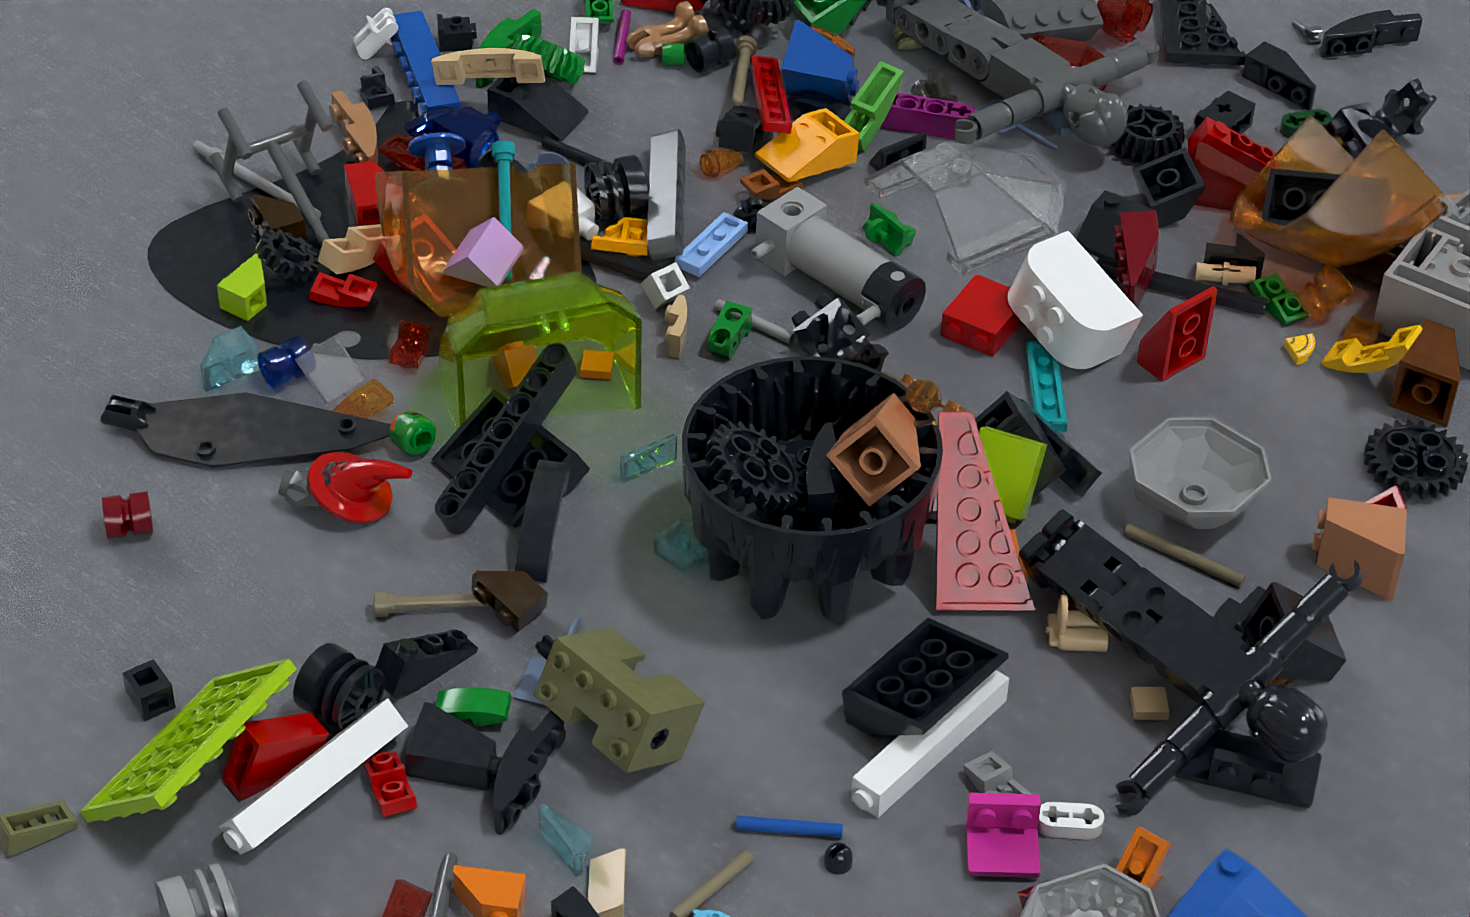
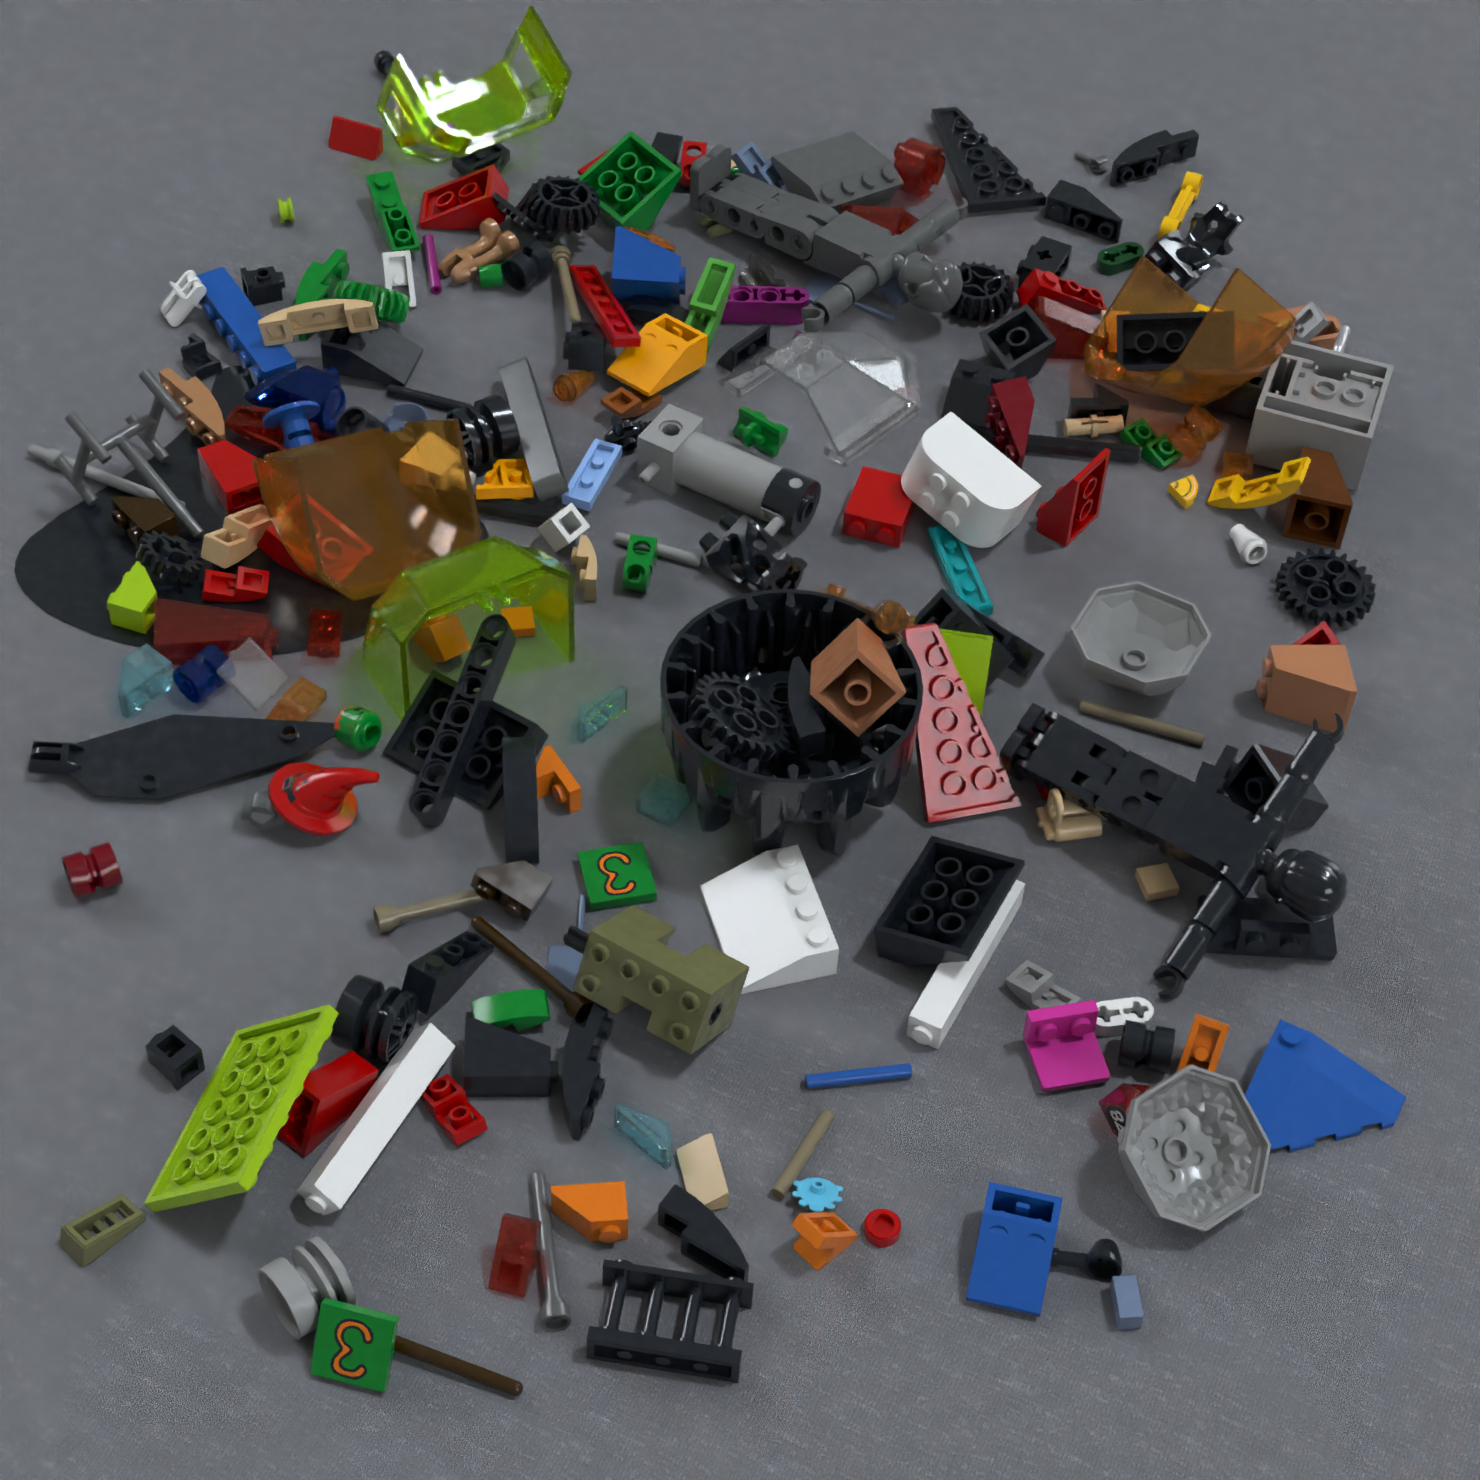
camera: 15 degrees left, 5 degrees up
(284, 317) = (187, 628): none -> clear red slope
(485, 255) = (376, 525): lavender slope -> none
(503, 153) = (371, 417): teal piece -> none
(534, 709) = (576, 1005): none -> dark brown piece
(581, 507) = (557, 779): none -> orange slope
(615, 604) = (616, 876): none -> green tile
(749, 671) = (772, 920): none -> white slope
(841, 862) = (919, 1104): black hinge -> none
(1082, 850) = (1146, 1046): none -> black wheel
(1349, 407) = (1250, 546): none -> white cone
(1399, 69) = (1189, 191): none -> yellow piece

